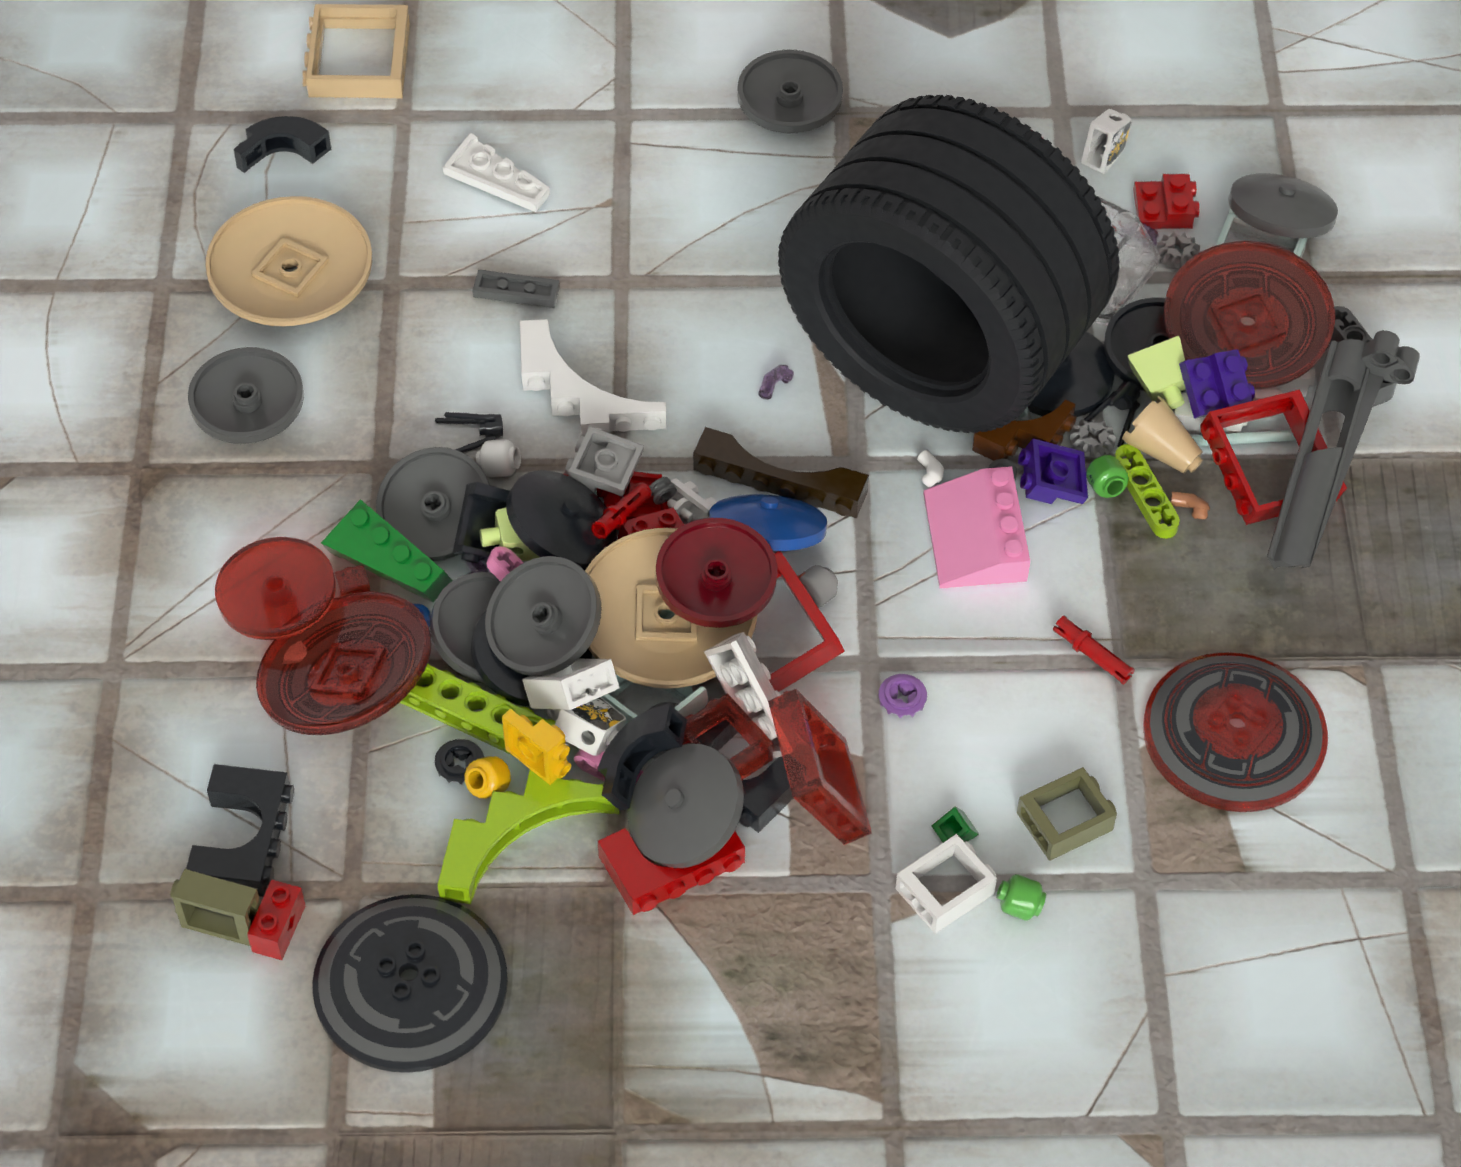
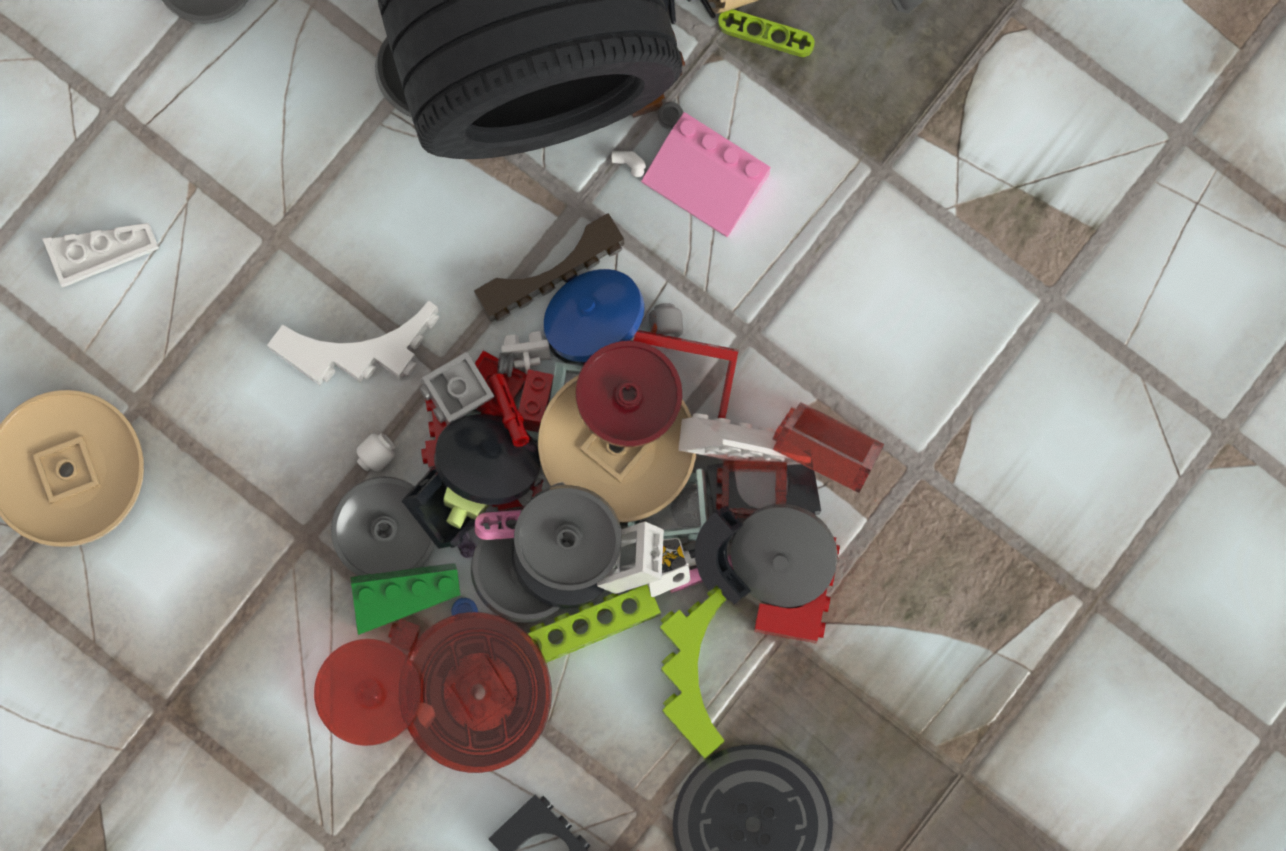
camera: 50 degrees left, 25 degrees up
(245, 395) = (170, 590): dark grey dish -> none
(462, 750) = (600, 660): black gear -> none
(486, 776) = (643, 662): yellow head -> none
(488, 425) = (337, 437): black plant -> none
(516, 288) = (225, 320): dark grey plate -> none
(537, 747) = (671, 615): yellow plate -> none
(770, 379) = (459, 203): clear purple arm -> none
(907, 685) = (789, 325): medium lavender gear -> none
(922, 900) = (959, 454): white window -> none
(955, 823) = (921, 386): green slope -> none
(1021, 897) = (1008, 389): bright green head -> none
(1043, 831) = (964, 332): olive window -> none
(1053, 472) = (705, 84): dark purple plate -> none
(1083, 642) = (851, 182): red pin -> none
(1091, 447) = (700, 38): light grey gear -> none
(1107, 476) = (736, 50): bright green head -> none
(1188, 500) = (801, 10): nougat arm -> none
(1226, 765) = (985, 178): dish -> none

